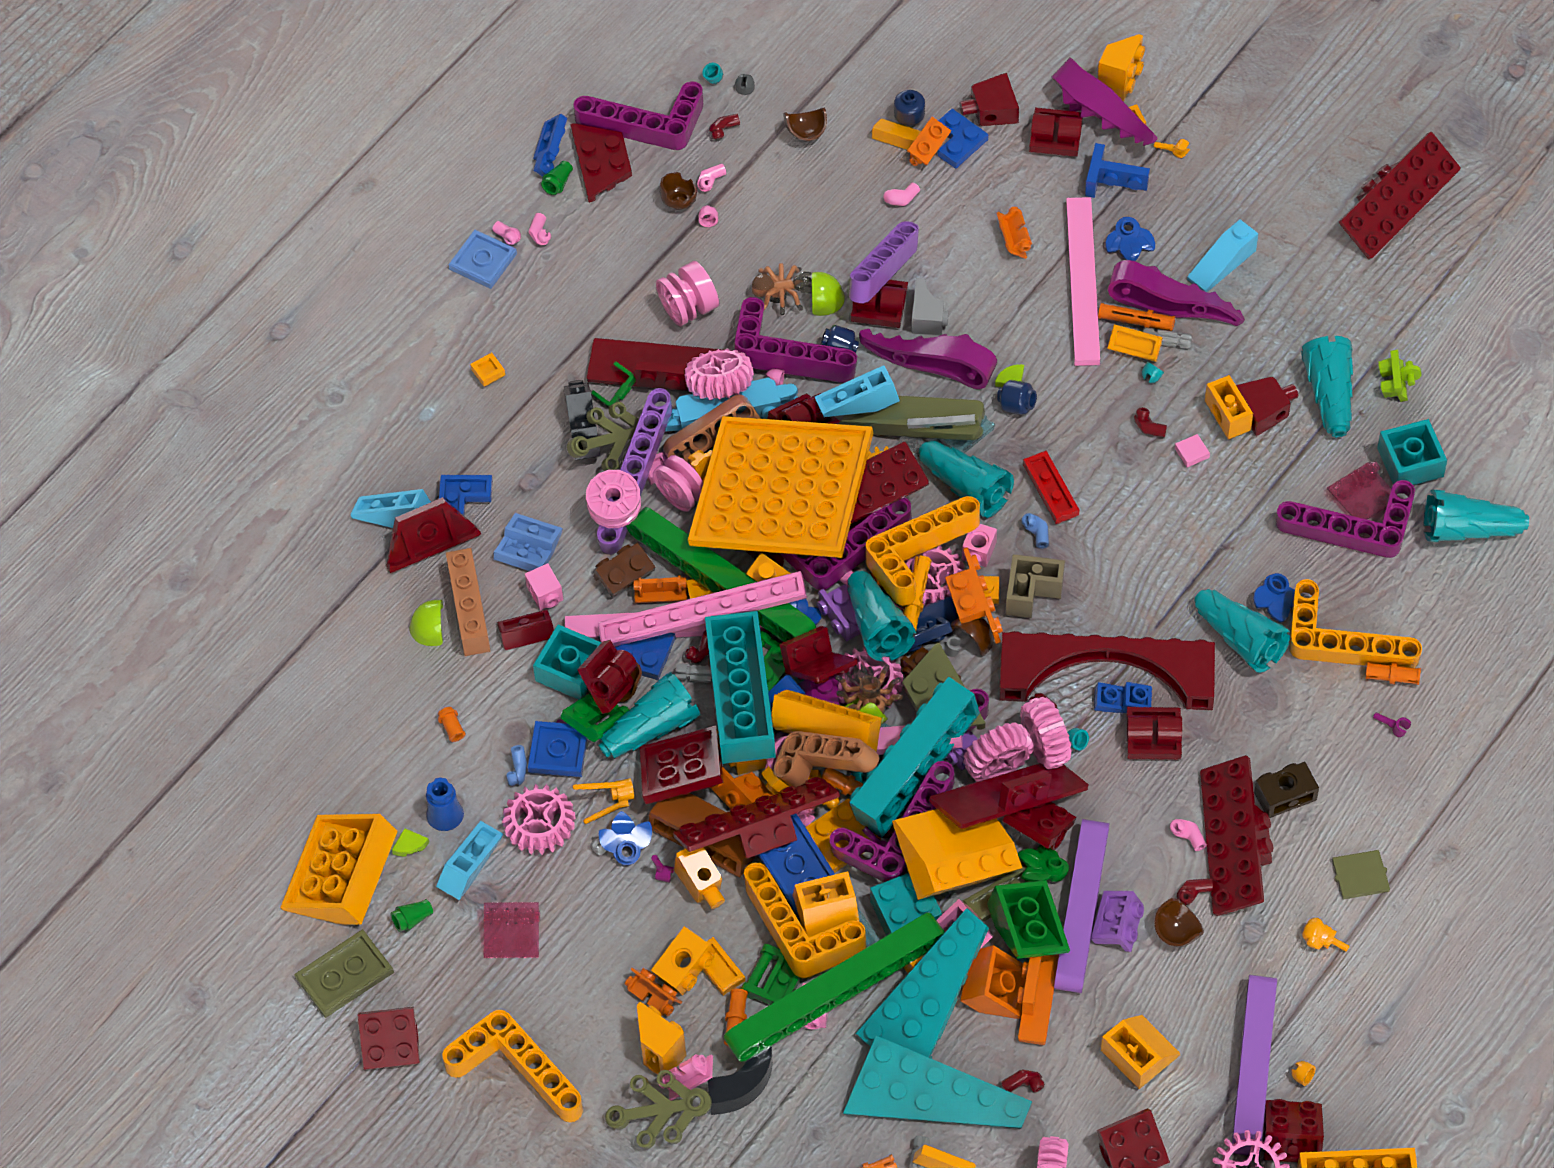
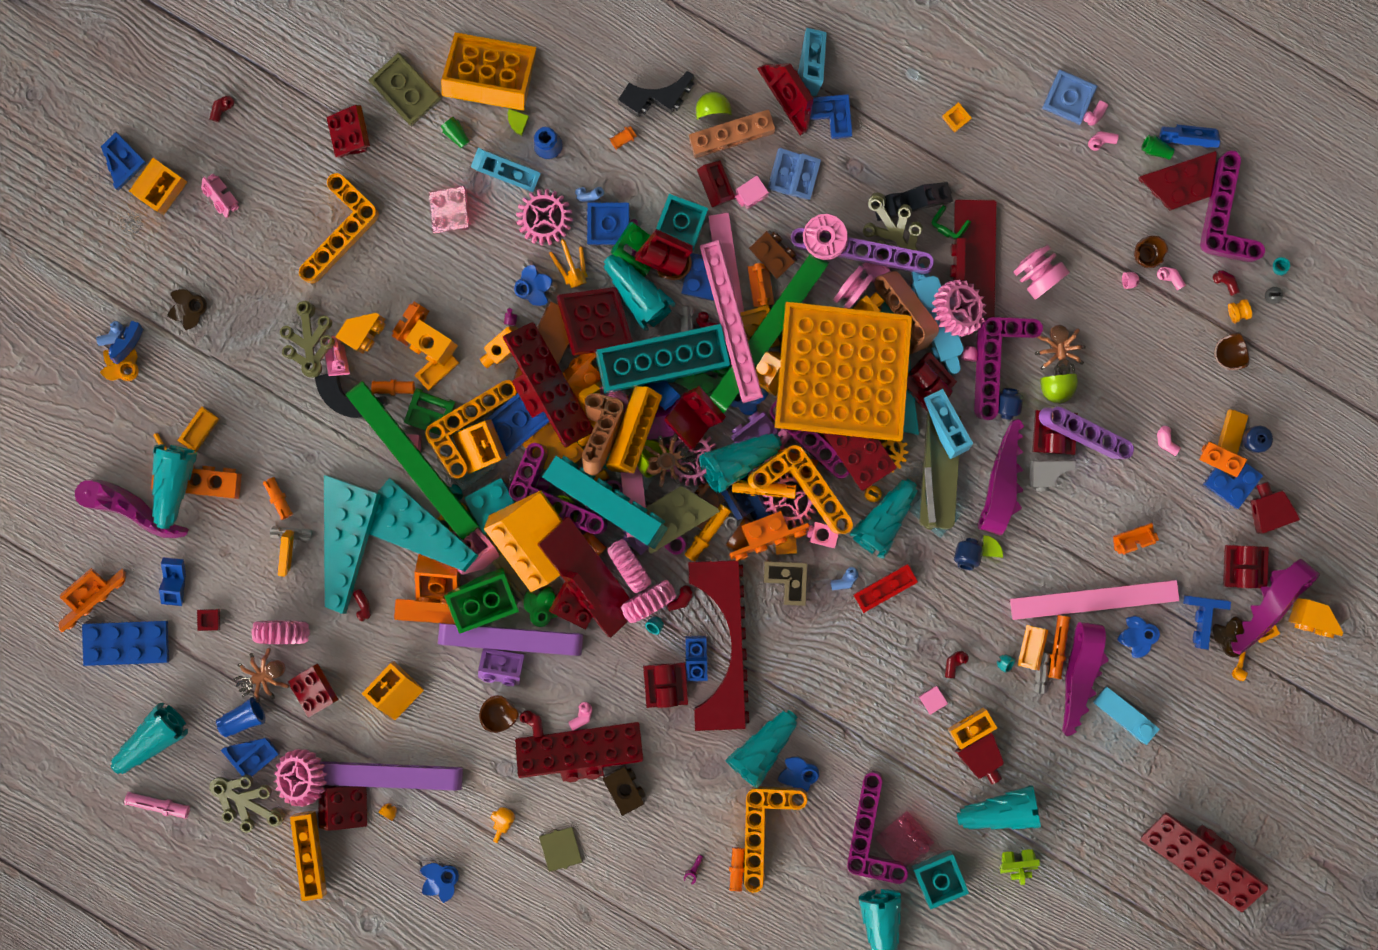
camera: 80 degrees right, 30 degrees up
(407, 699) = (669, 98): none -> black arch
(759, 114) = (1240, 311): none -> light orange wheel
(937, 495) = (871, 498): none -> light orange hinge
(972, 676) = (704, 537): none -> light orange pin
(1136, 153) = (1226, 635): none -> dark brown plate
(1399, 1023) = (437, 882): none -> blue plate

